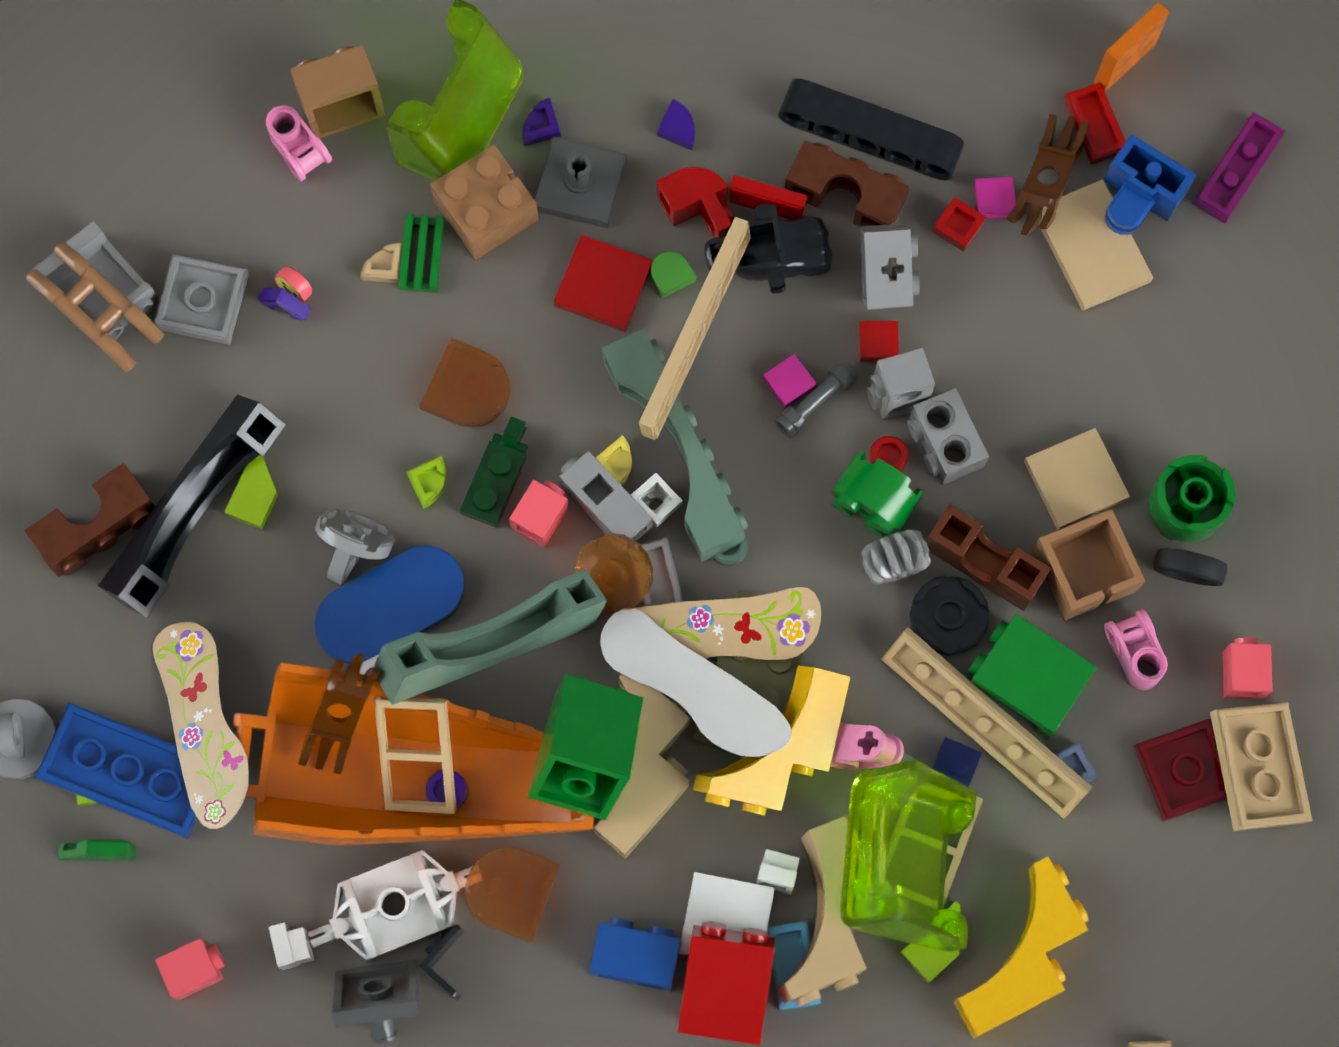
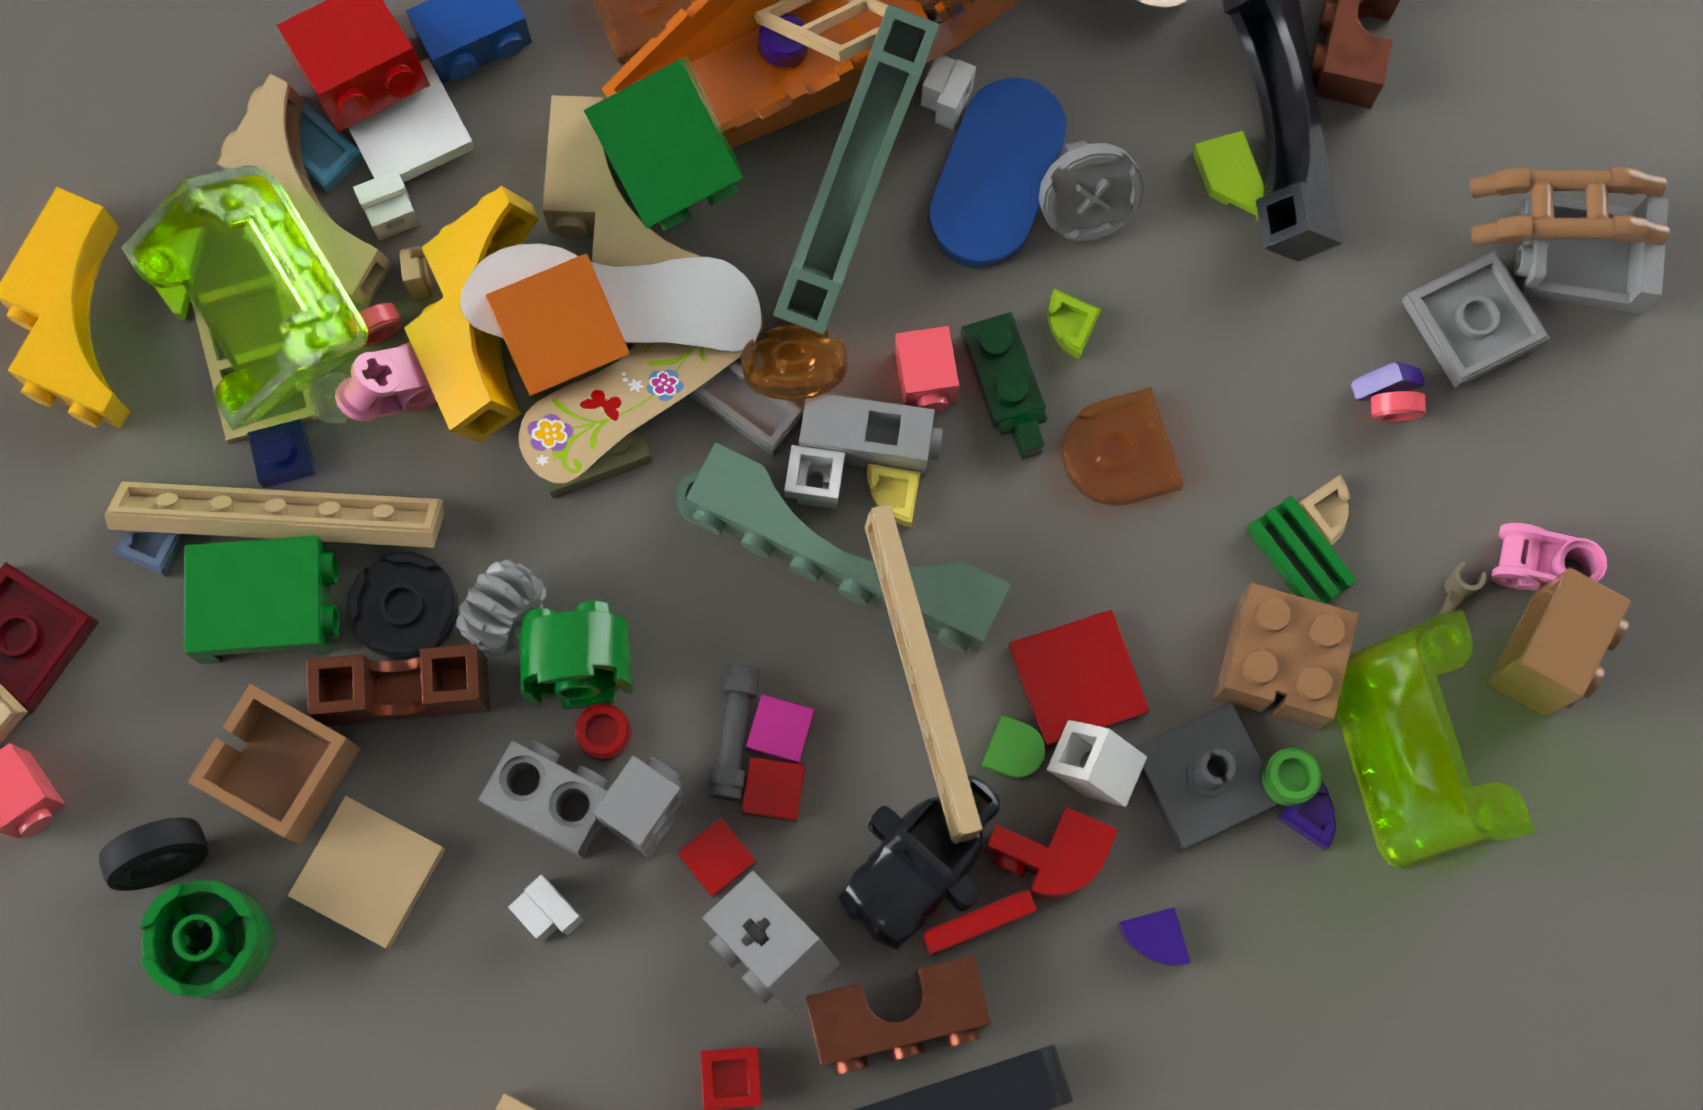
camera: 140 degrees right, 0 degrees up
(359, 167) = (1458, 590): none -> dark tan hand
(538, 141) = (1291, 777): none -> bright green tile
(636, 224) = (1097, 763): none -> white brick
(739, 688) = (557, 324): none -> orange tile
(791, 817) = (415, 273): none -> tan tile
(819, 352) = (773, 789): none -> red tile
(836, 796) = (381, 322): none -> coral tile
(993, 380) = (545, 910): none -> white piece
(1134, 642) = (162, 725): bright pink piece -> none

